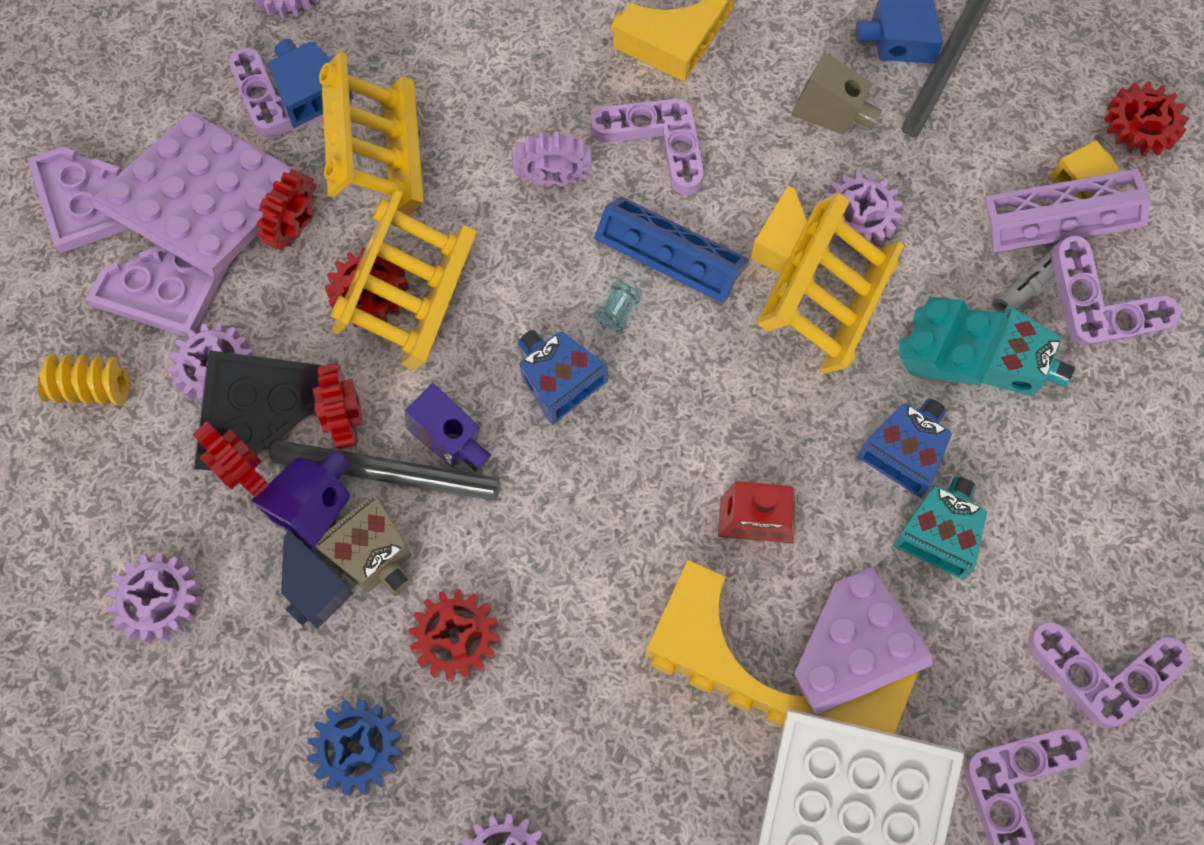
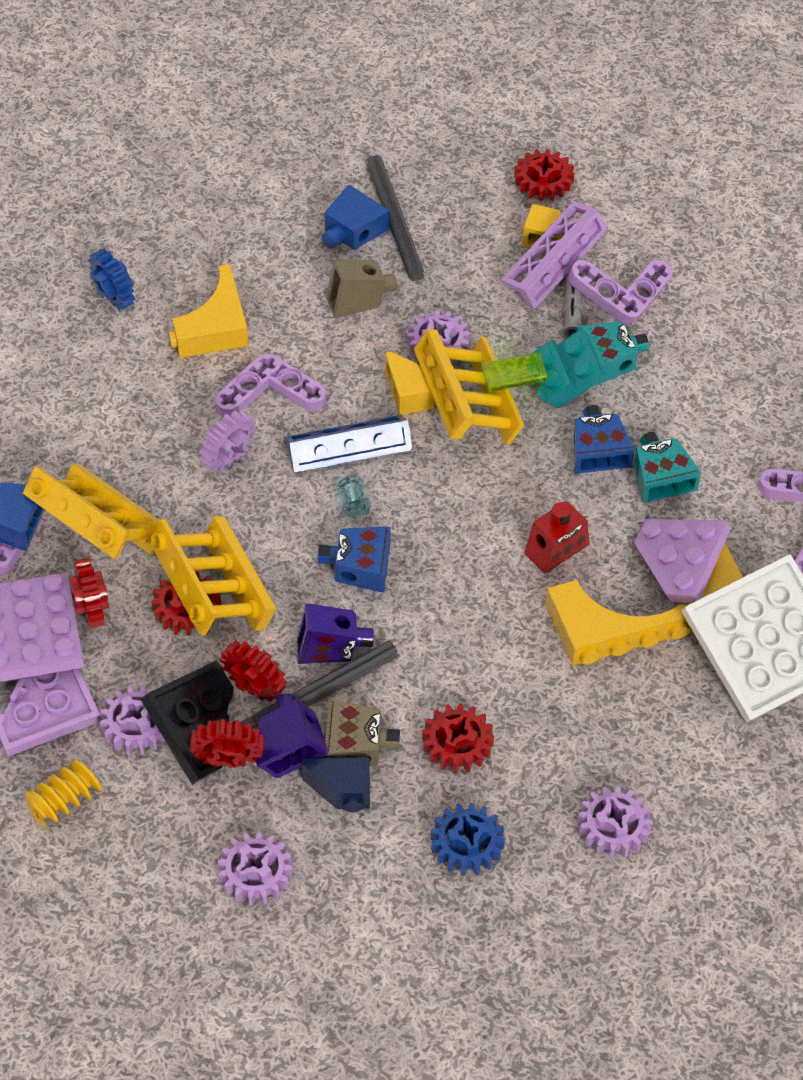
camera: 45 degrees left, 15 degrees down
(890, 304) = (514, 372): none -> clear neon green tile

